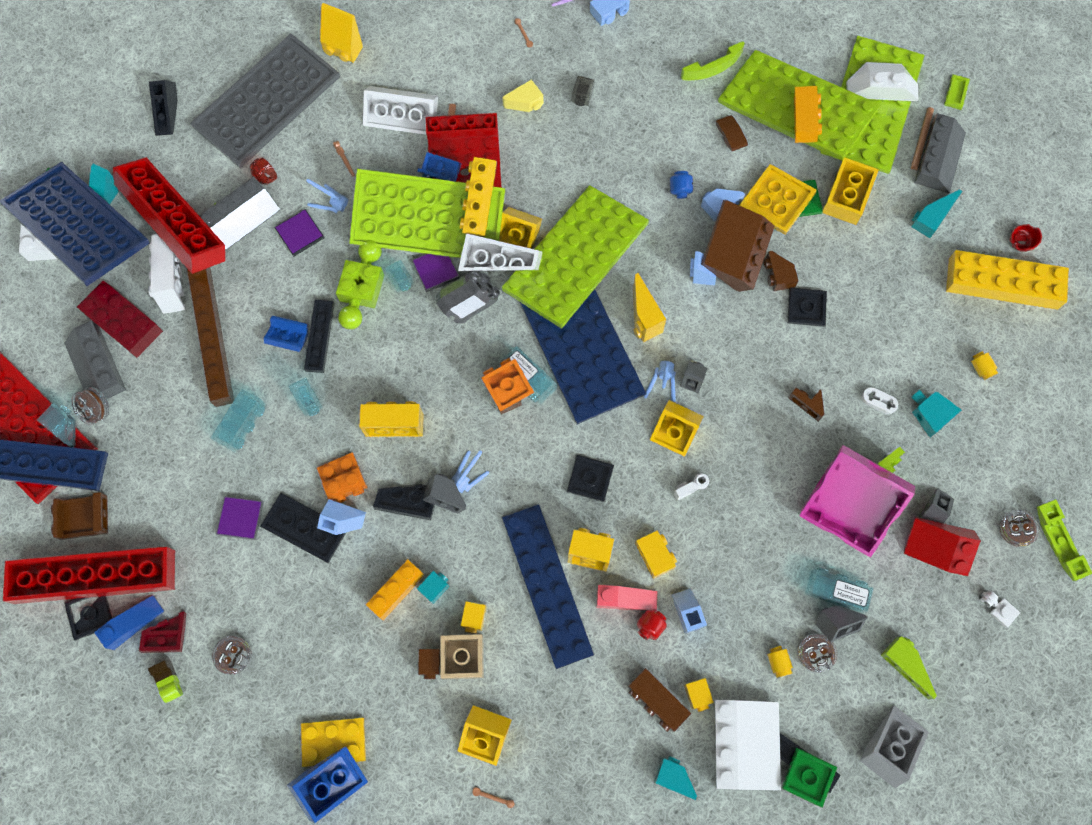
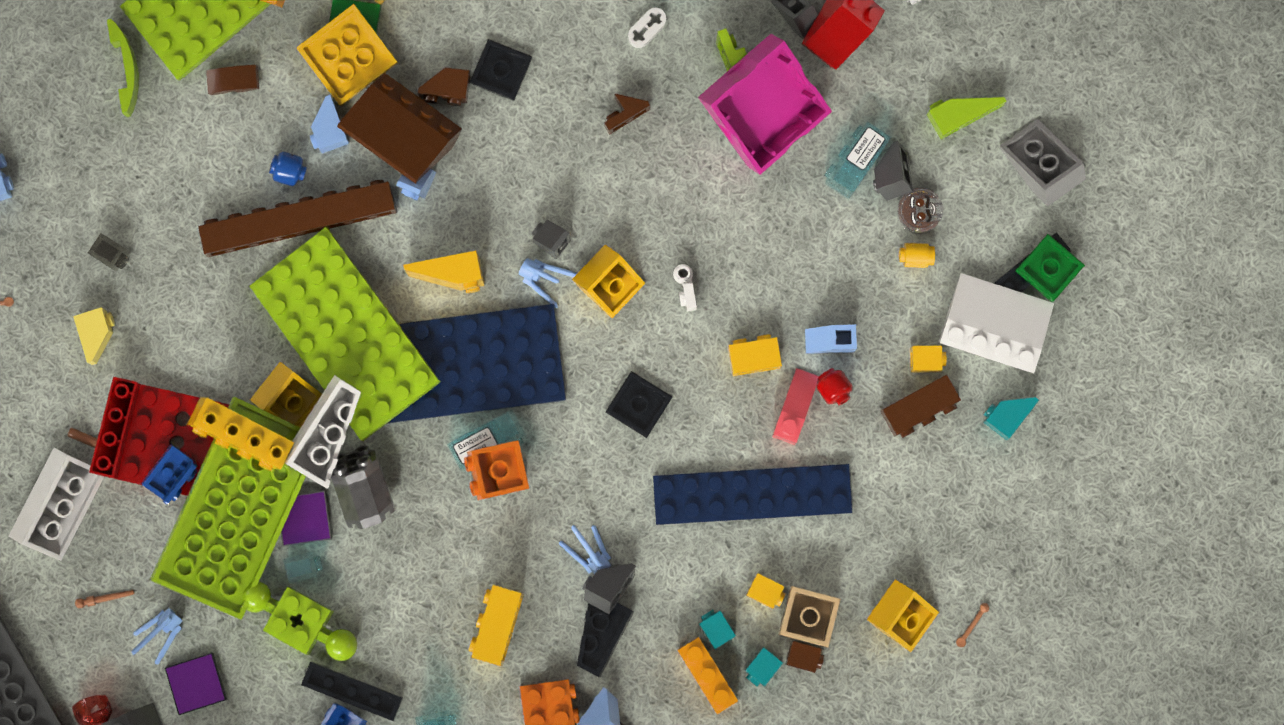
camera: 75 degrees left, 10 degrees up
(412, 632) = (762, 667): none -> teal brick
(590, 549) = (734, 426): yellow brick -> none
(648, 202) = (297, 219): none -> reddish brown brick

